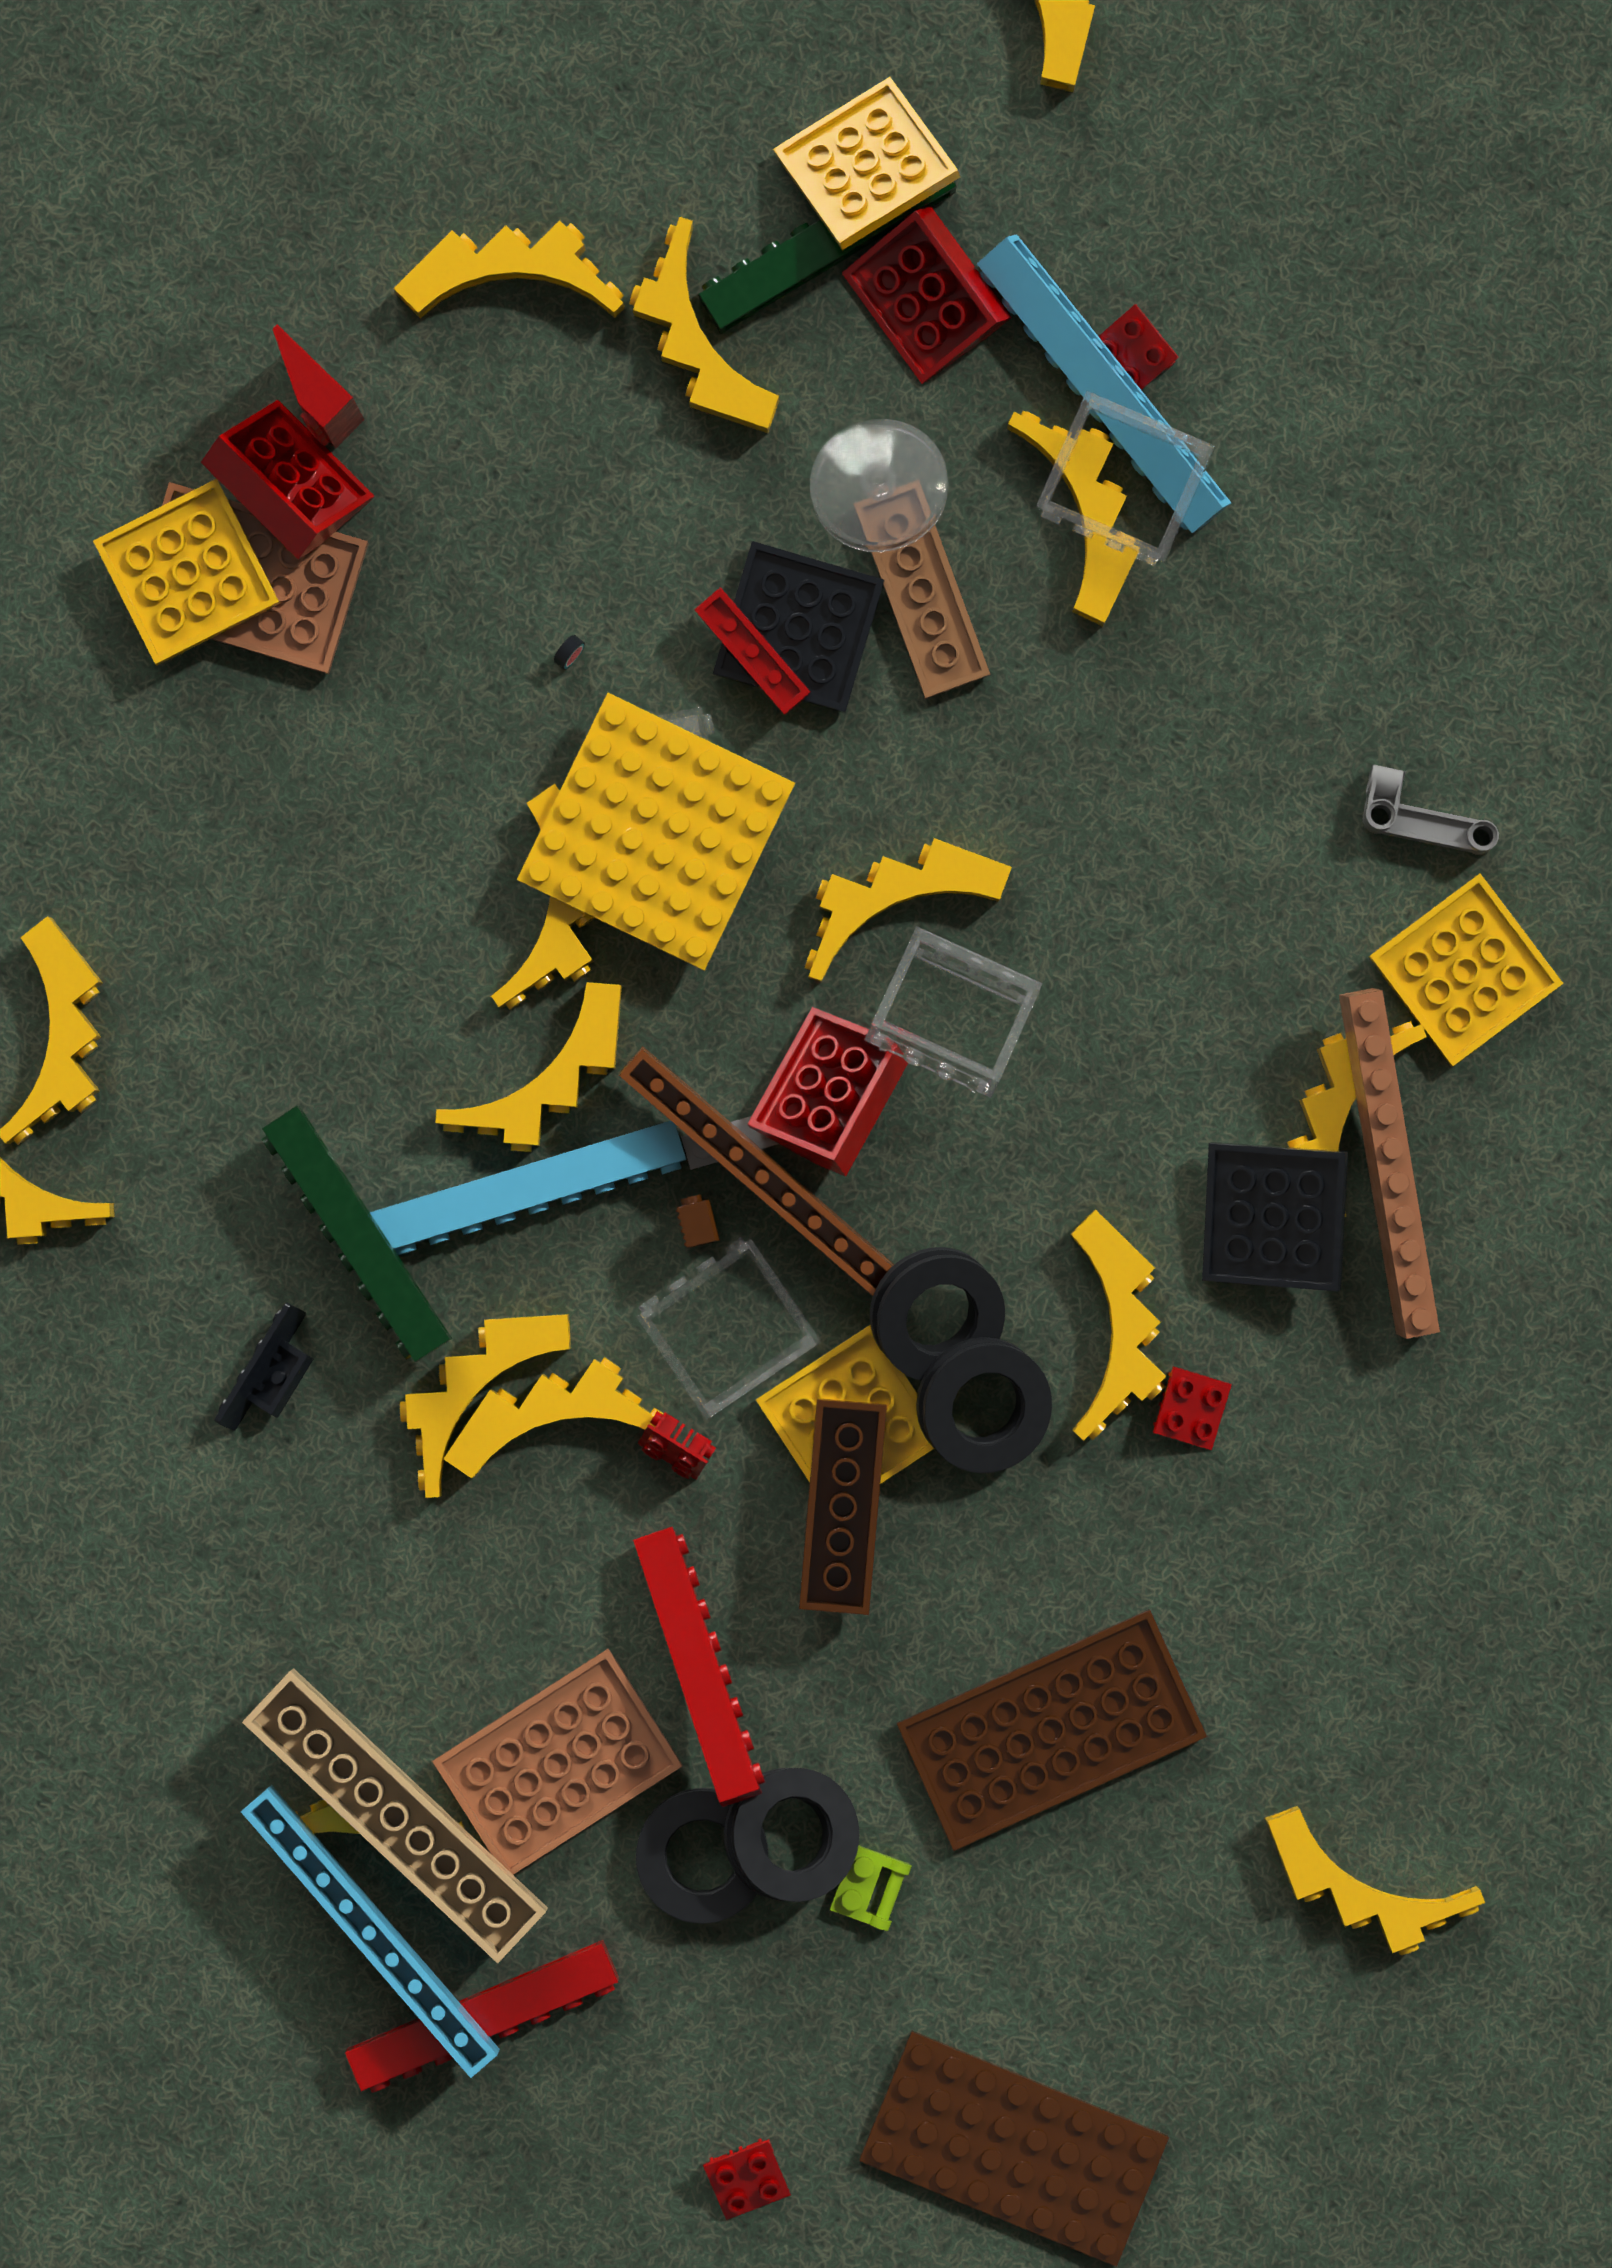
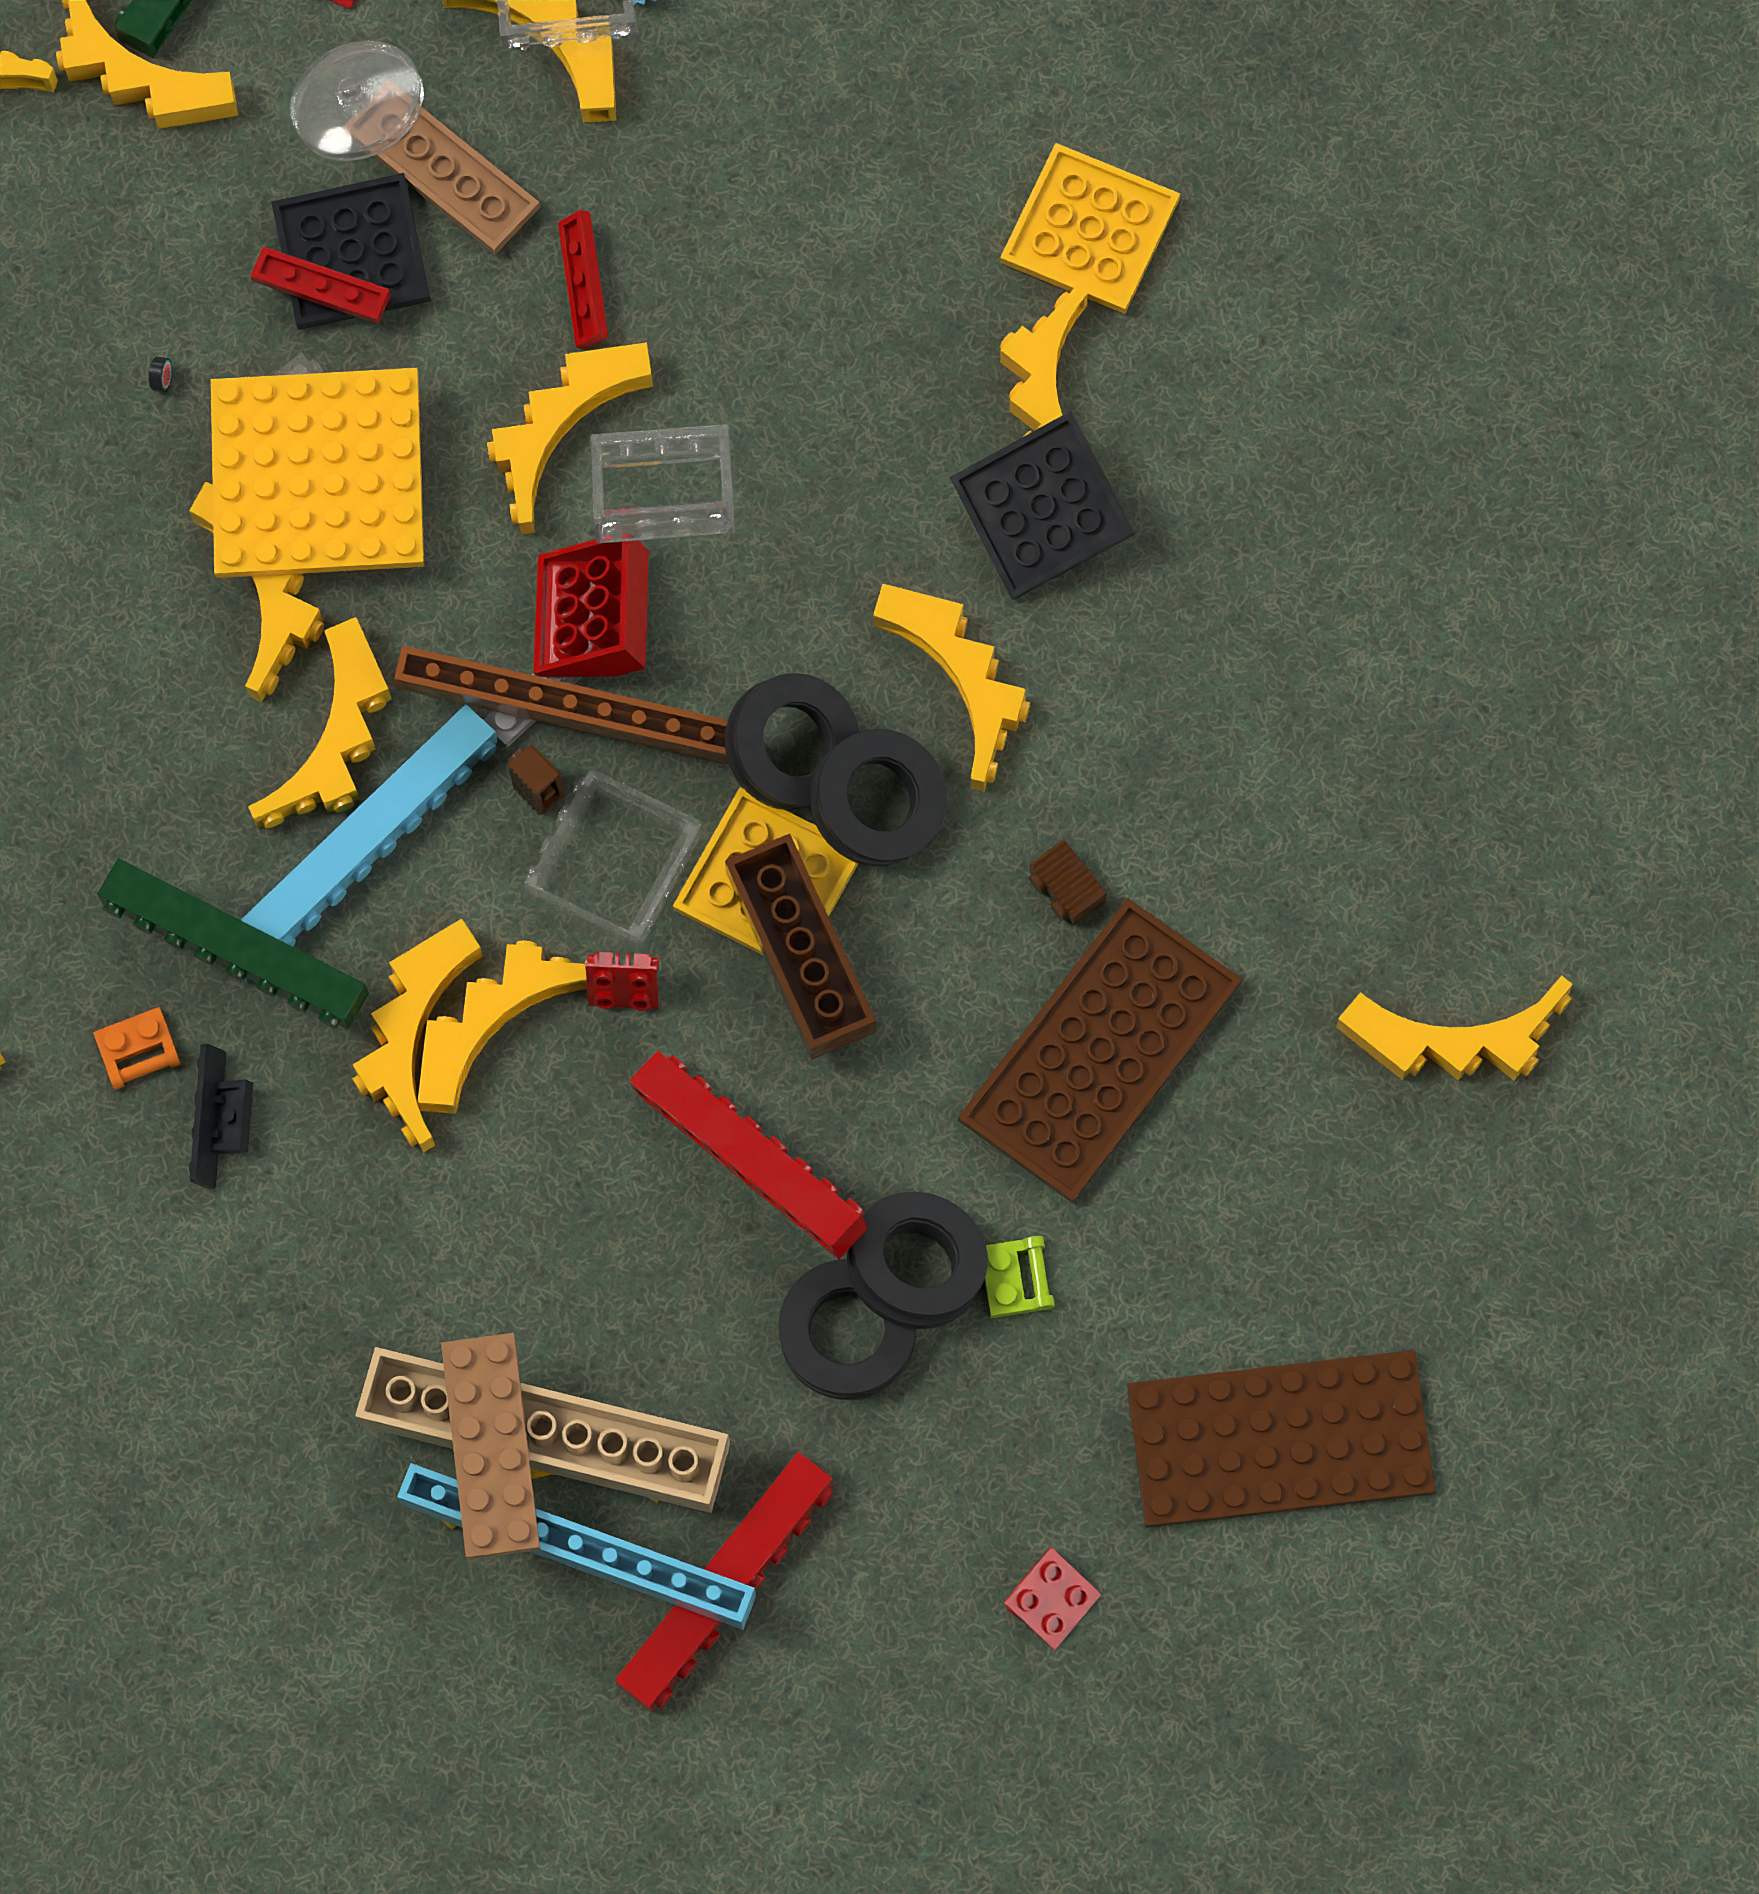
camera: 25 degrees left, 15 degrees down
(231, 1257) = (133, 1038): none -> orange plate
(340, 1813) = (490, 1446): none -> medium nougat plate
(557, 1763) = (670, 1315): nougat plate -> none
(989, 769) = (583, 279): none -> red plate
(1106, 1566) = (1067, 883): none -> reddish brown brick
(1192, 1408) = (1064, 710): red hinge -> none
(1389, 1163) = (1116, 408): nougat brick -> none
(1419, 823) = (980, 130): light grey piece -> none

